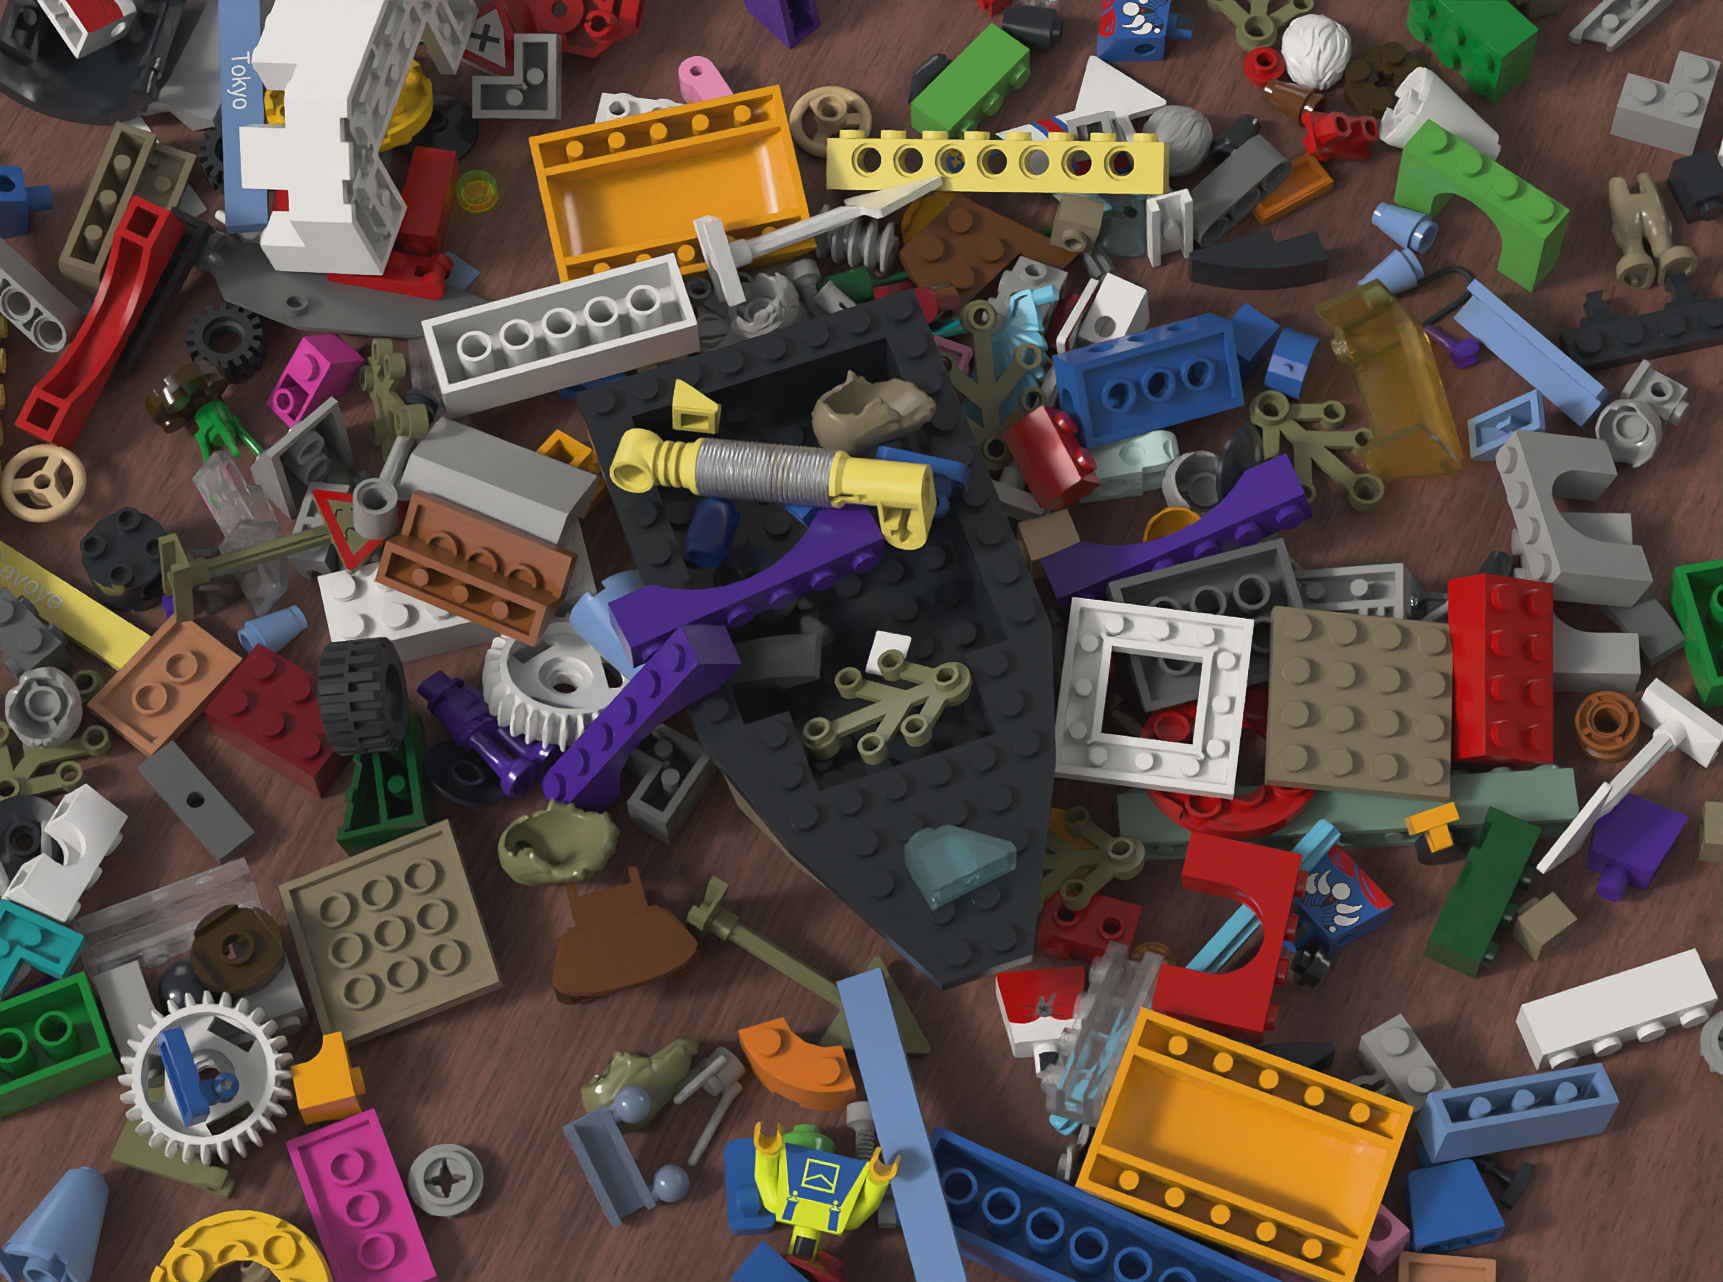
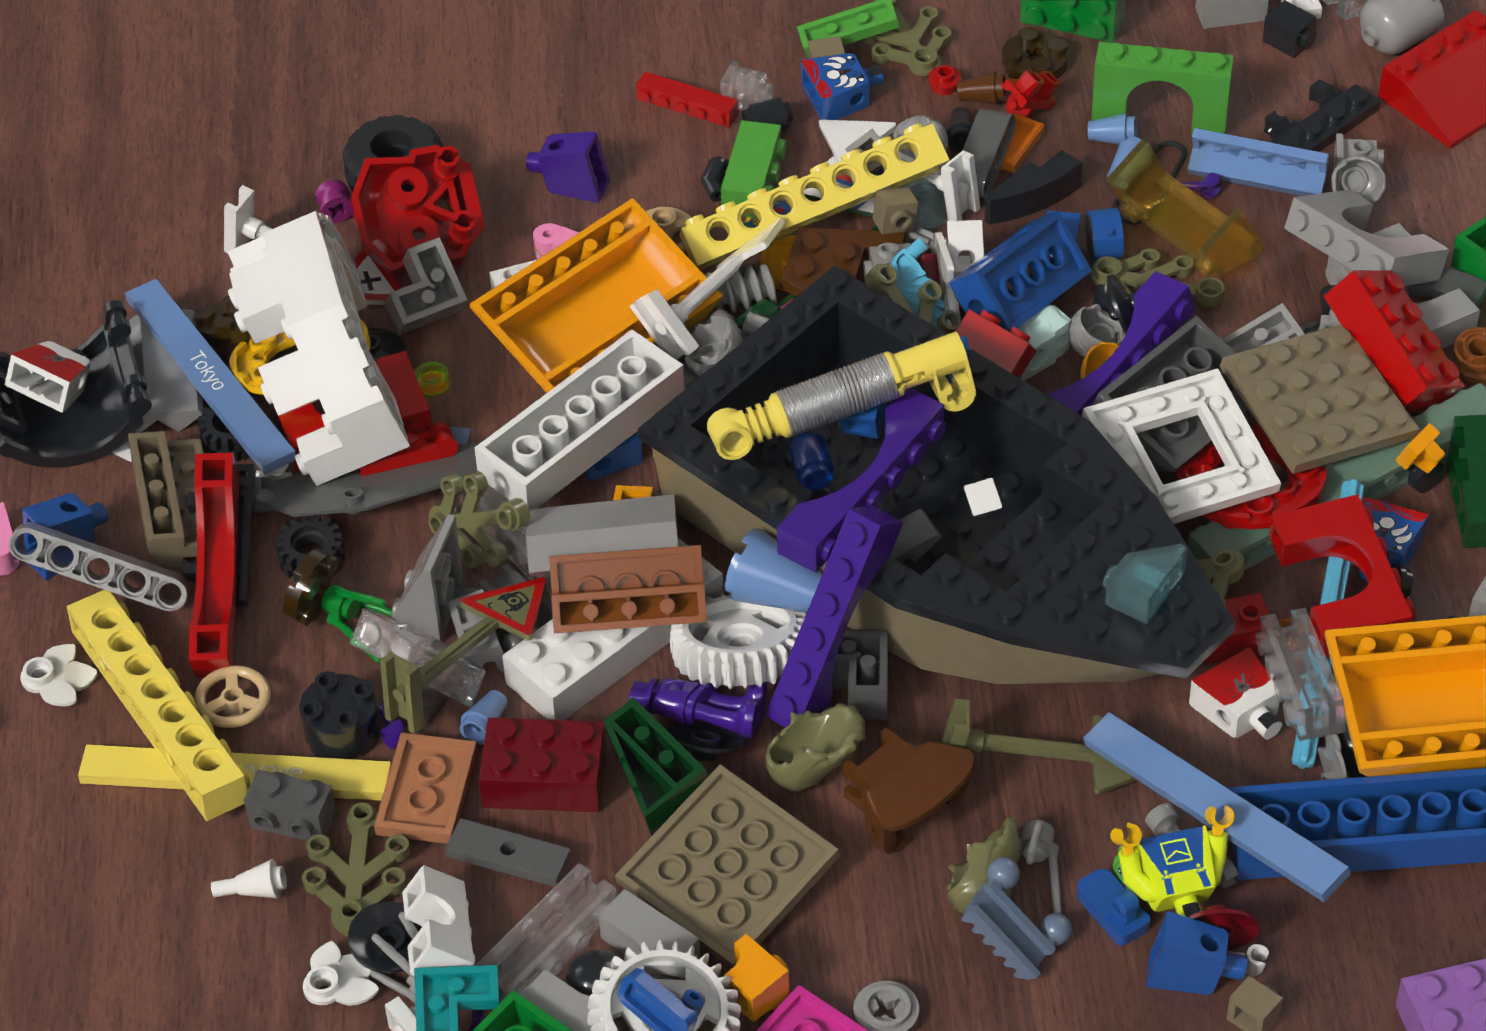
camera: 30 degrees left, 15 degrees down
(44, 707) = (347, 836): light grey hair -> none
(243, 975) = (627, 899): dark brown plate -> none
(317, 370) = (397, 542): dark pink slope -> none
(362, 696) = (612, 695): black tyre -> none
(381, 491) = (520, 575): light grey piece -> none
(693, 410) = (740, 391): light yellow slope -> none
(798, 1070) = (1093, 809): orange brick -> none
(869, 415) = (873, 337): dark tan piece -> none
(938, 687) = (1044, 488): olive plant -> none
(1316, 51) = (974, 53): white hair -> none
(1428, 97) = (1076, 51): white cone -> none
(1493, 428) = (1272, 213): medium blue slope -> none
(1640, 218) = (1275, 69): dark tan piece -> none

